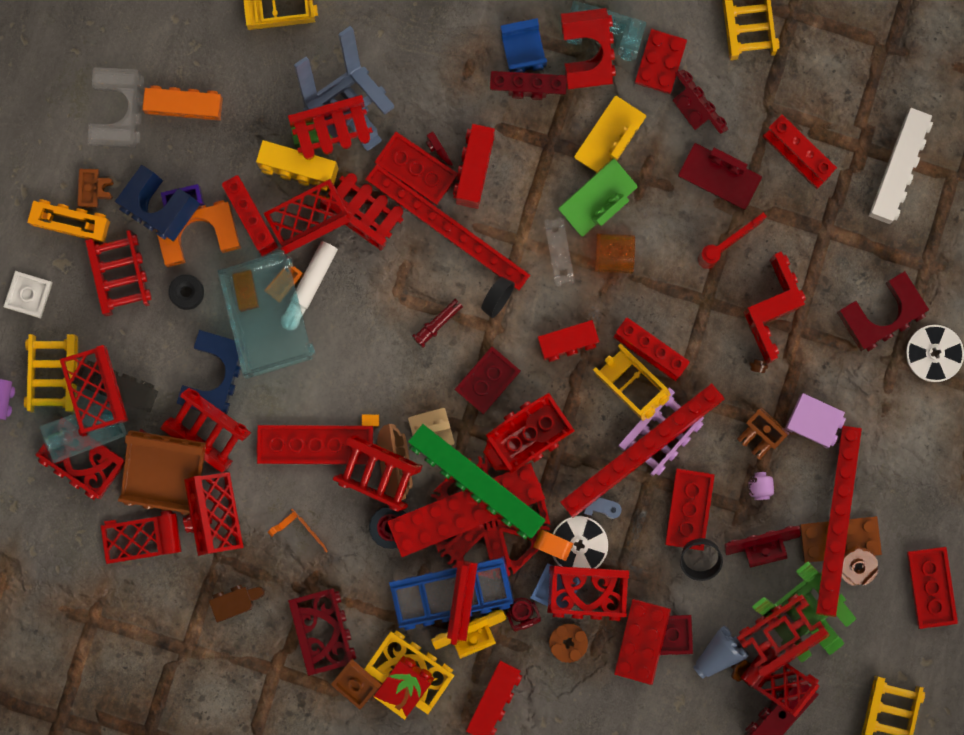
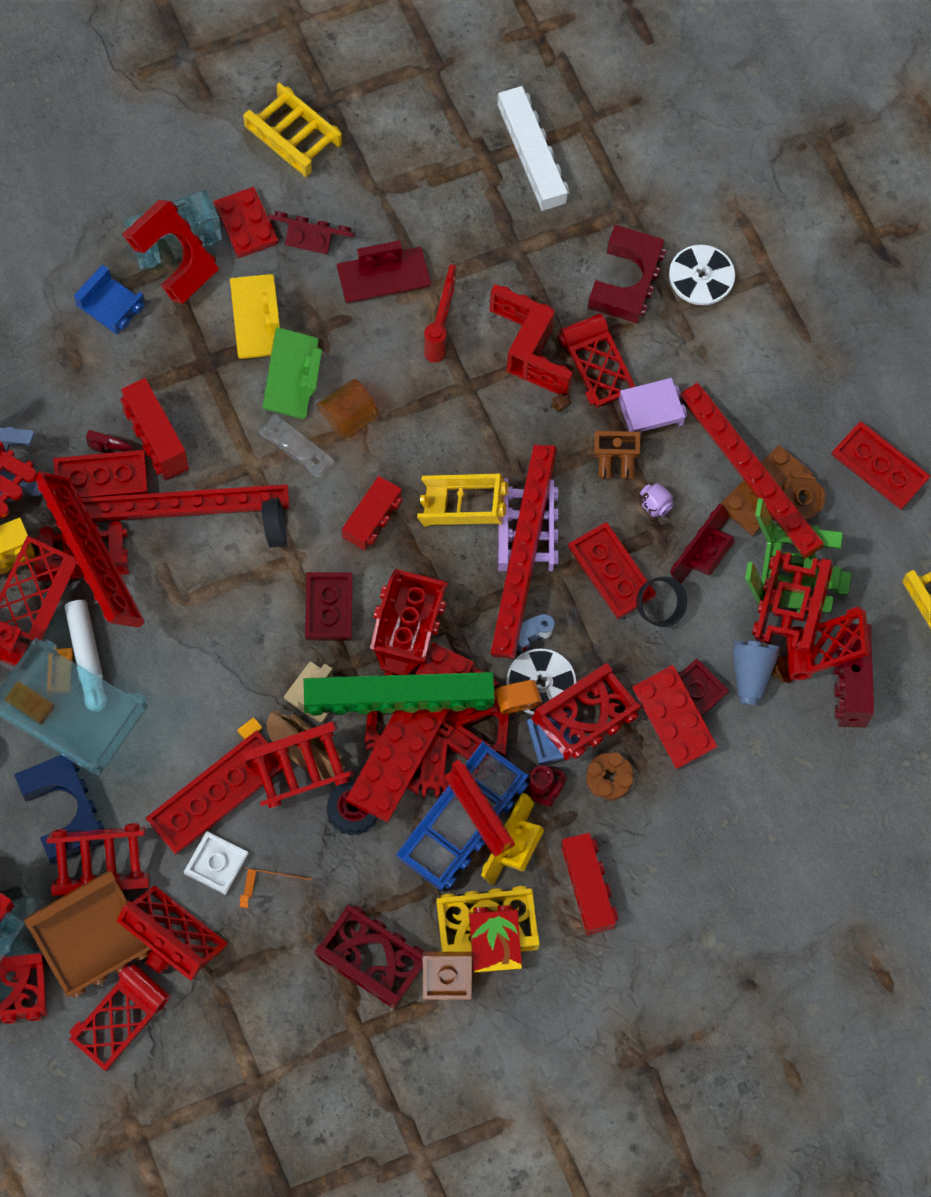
camera: 45 degrees left, 15 degrees down
(234, 603) = (264, 1000): reddish brown hinge -> none
(278, 489) = (216, 863): none -> white tile
(362, 220) = (89, 550): none -> red plate
(430, 329) = (236, 602): dark red pin -> none
(528, 84) = (142, 326): dark red bracket -> none
(651, 349) = (454, 456): red fence -> none
(799, 151) = (443, 205): red fence -> none
(816, 331) = (588, 333): none -> red piece

